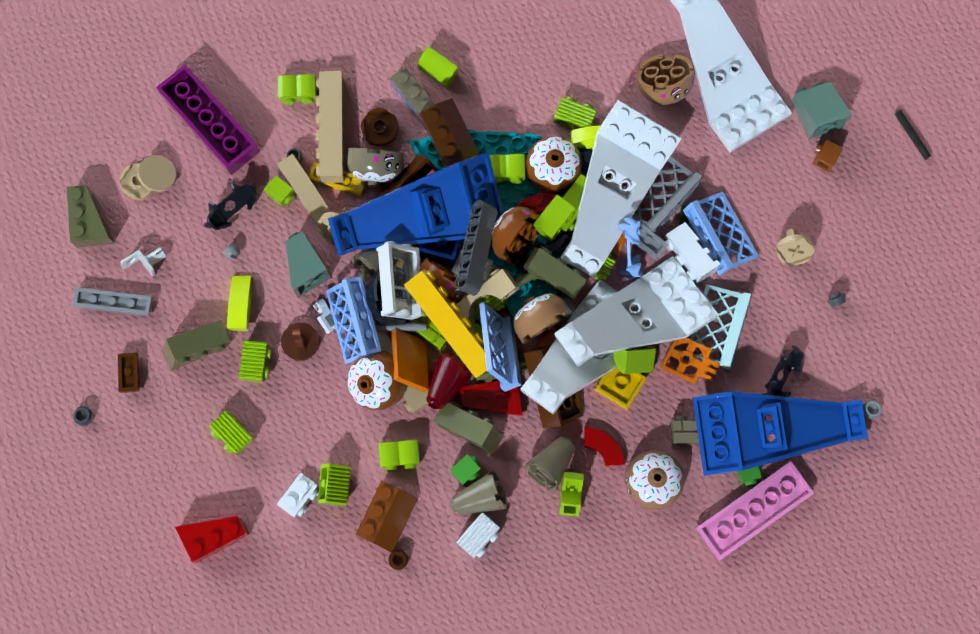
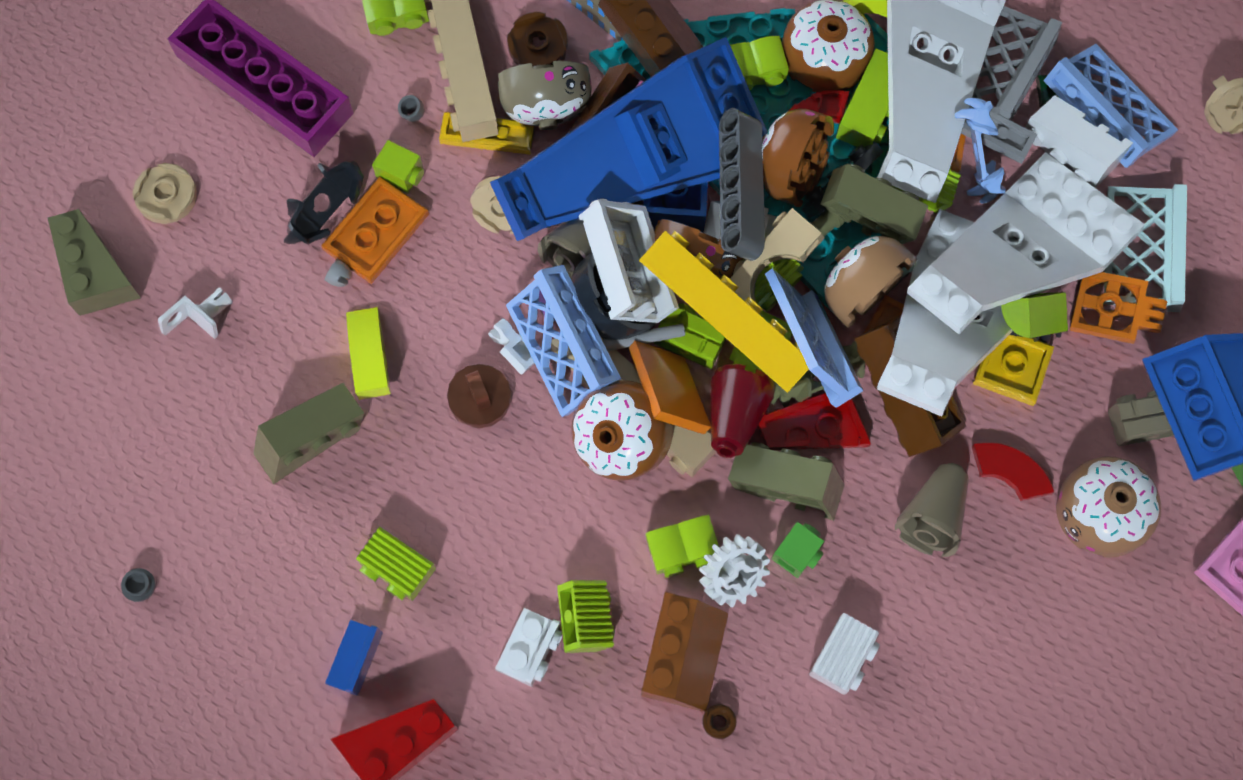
camera: 10 degrees left, 5 degrees down
(112, 301) = (155, 389): light grey plate -> none
(128, 372) = (203, 499): reddish brown plate -> none
(156, 173) = (192, 174): tan tile -> none
(198, 482) = (354, 657): none -> blue panel
(254, 361) = (411, 440): lime brick -> none
(259, 227) = (375, 230): none -> orange tile
(303, 187) = (436, 153): tan slope -> none
(304, 265) = (465, 267): sand green slope -> none
(425, 475) = (734, 570): none -> white gear
(480, 496) = (833, 588): dark tan cone -> none
(554, 218) = (854, 119): lime brick -> none
(571, 494) = (979, 554): lime brick -> none
(586, 157) = (879, 27): black plate -> none

